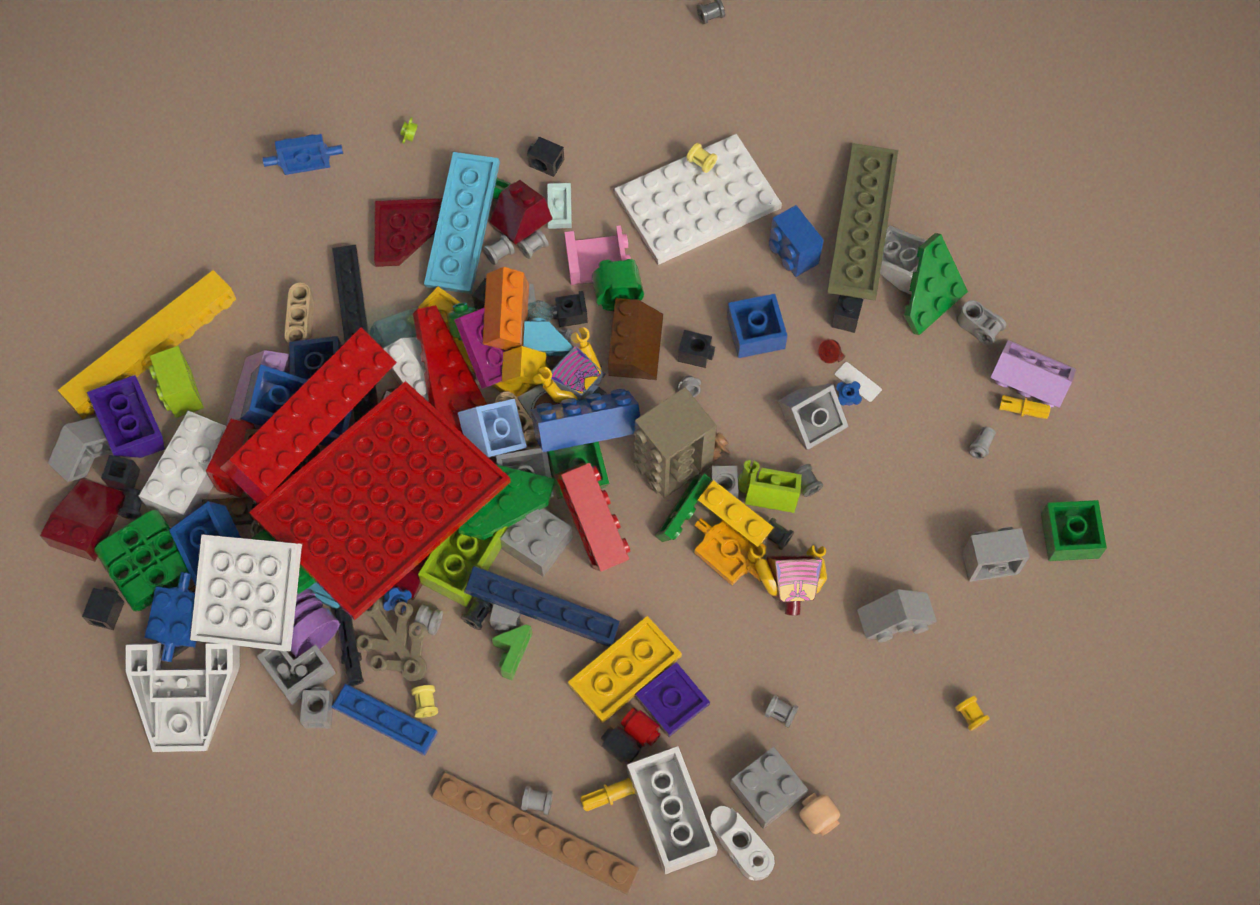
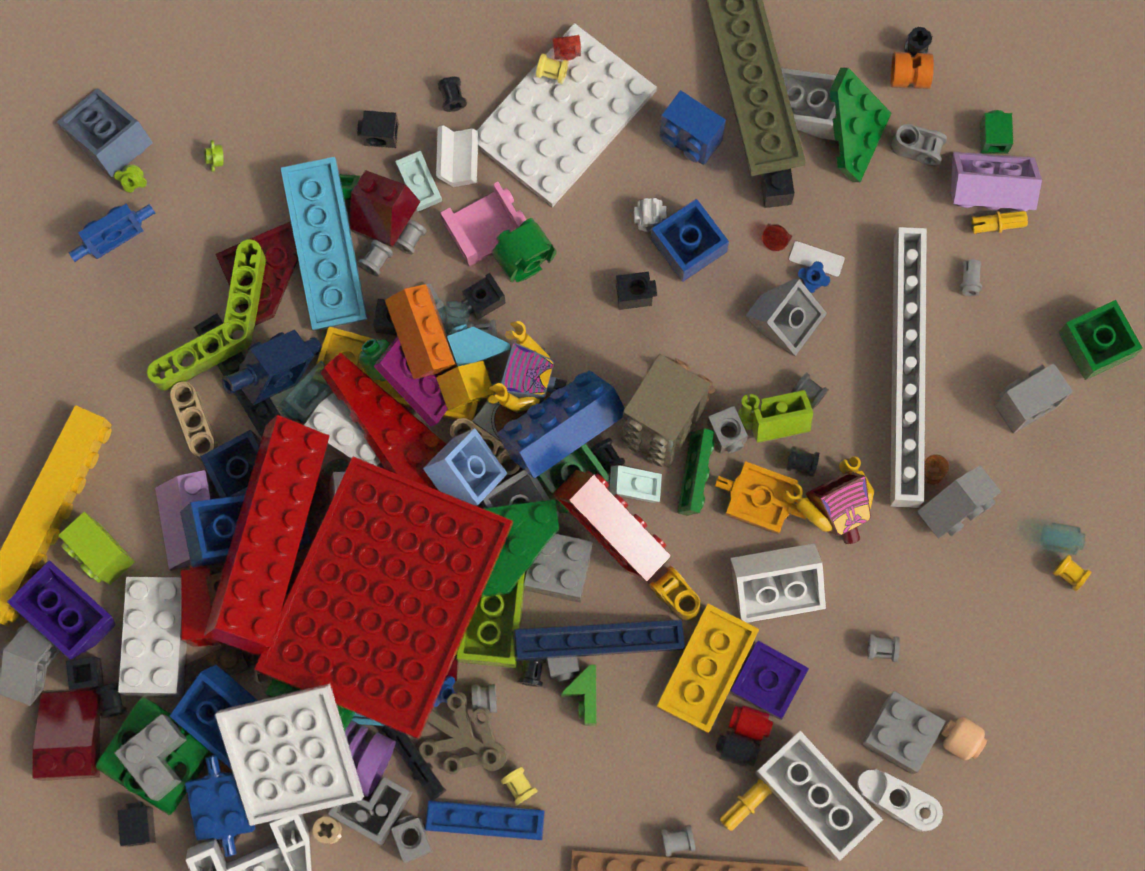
camera: 20 degrees left, 10 degrees up
(136, 549) = (146, 755): none -> light grey brick
(245, 671) = (318, 829): none -> tan bush
(335, 85) = (105, 132): none -> sand blue slope
(342, 122) = (131, 178): none -> lime plate
(377, 295) = (272, 366): none -> dark blue brick
(396, 215) = (222, 334): none -> lime beam
(597, 197) = (457, 156): none -> white panel
(614, 154) = (452, 94): none -> black bush
(616, 468) = (607, 455): none -> black bush
(623, 596) = (672, 590): none -> yellow piece
(629, 497) = (635, 483): none -> light aqua plate
(635, 340) = (566, 305): reddish brown slope -> none
(691, 383) = (645, 334): light grey plate -> none
(714, 623) = (778, 583): none -> white slope
(720, 145) = (567, 47): none -> clear red plate
(732, 292) = (649, 214): none -> white gear
(735, 513) = (755, 459): yellow plate -> none
(892, 576) = (935, 461): none -> clear orange bush
(896, 493) = (908, 368): none -> white brick
(975, 681) = (1062, 538): none -> clear light blue brick
(997, 263) = (911, 70): none -> orange wheel
(1012, 245) = (918, 41): none -> black bush
(1050, 336) = (996, 132): none -> green brick

